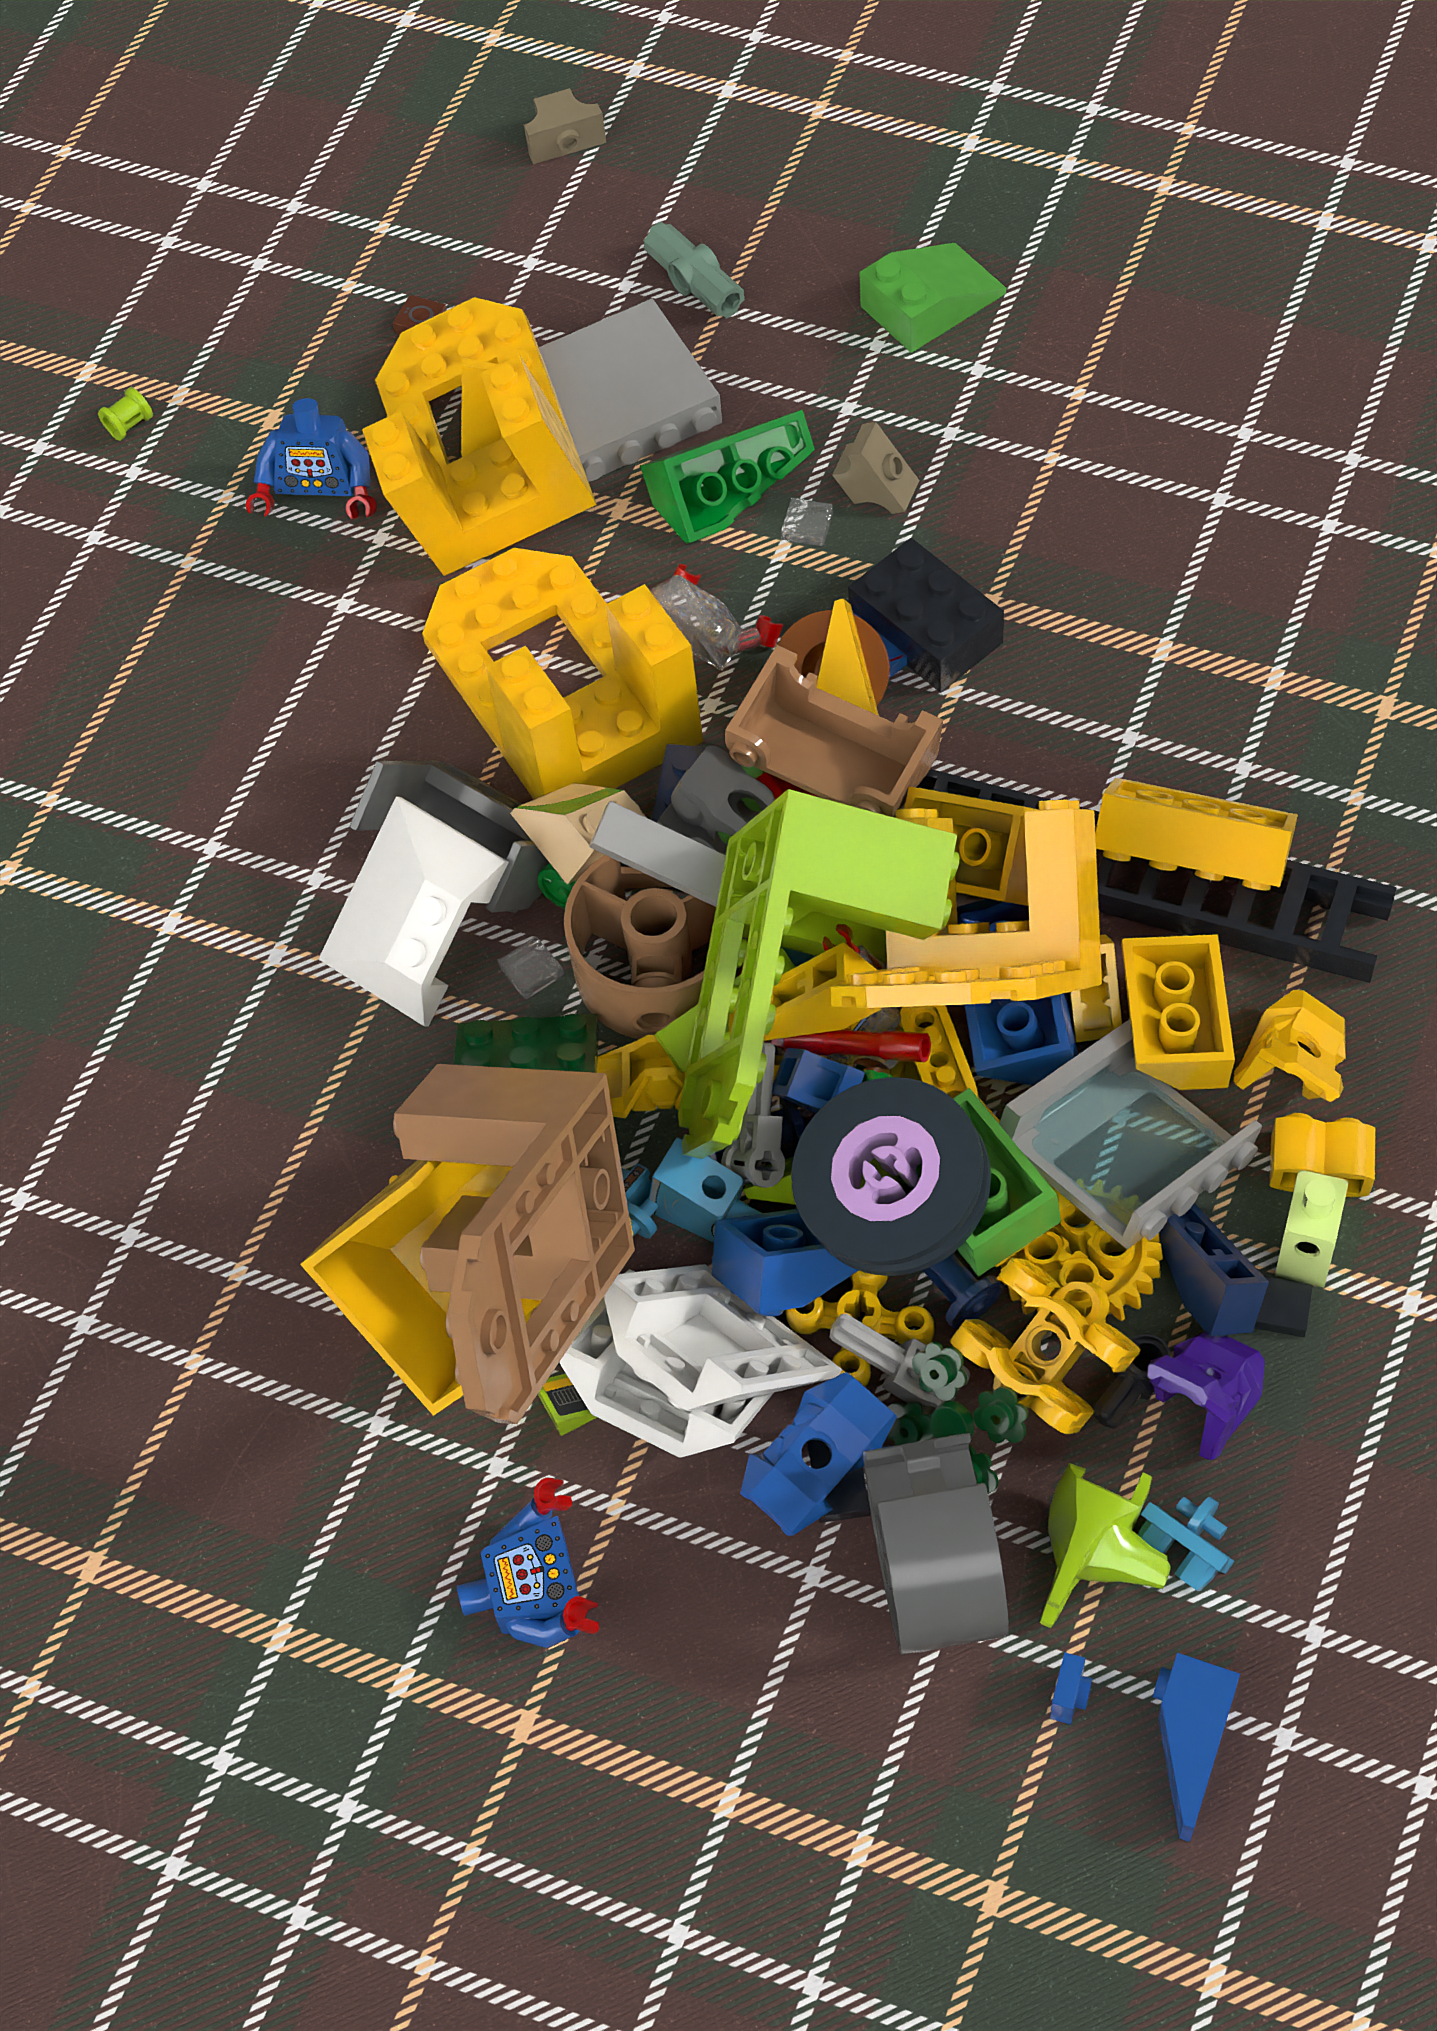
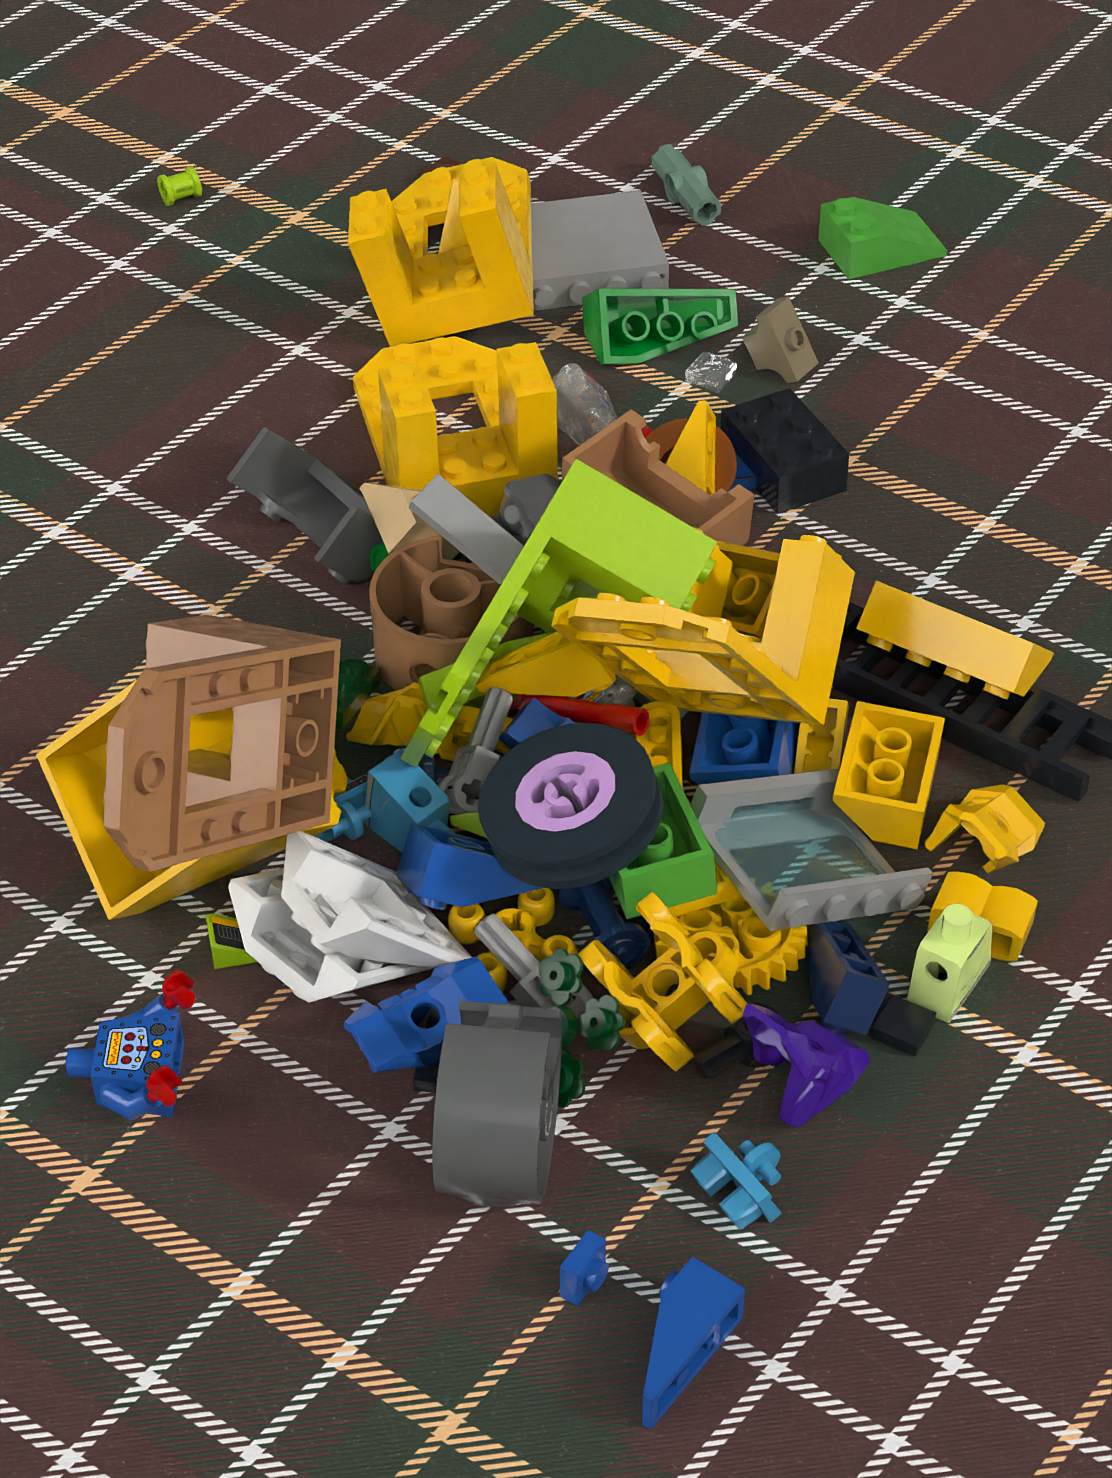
camera: 10 degrees right, 15 degrees down
(313, 458) = (311, 239): blue torso -> none
(410, 909) = (251, 542): white slope -> none
(530, 967) = (341, 623): clear tile -> none
(563, 126) = (618, 73): dark tan brick -> none
(1096, 1539) = (653, 1150): lime piece -> none

